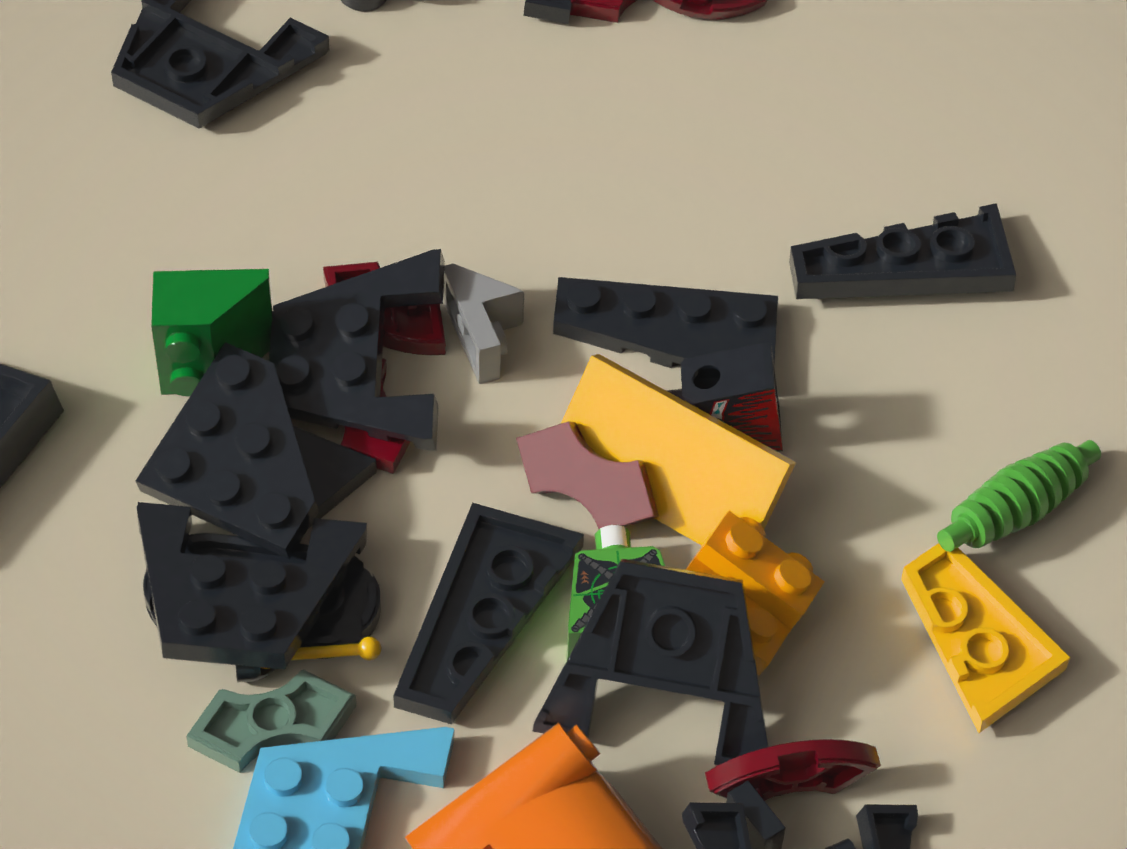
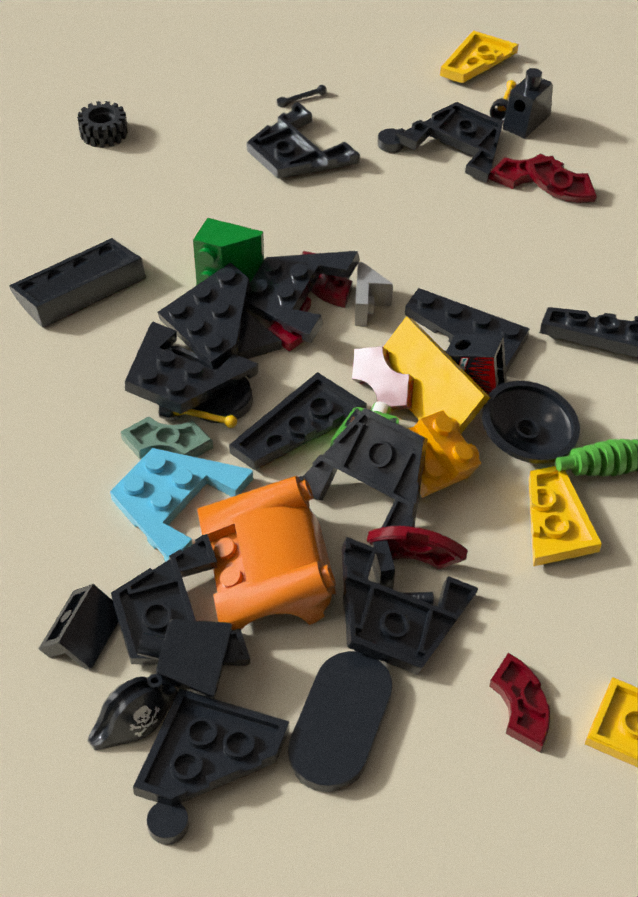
camera: 25 degrees right, 5 degrees down
(882, 462) = (530, 422): none -> black dish

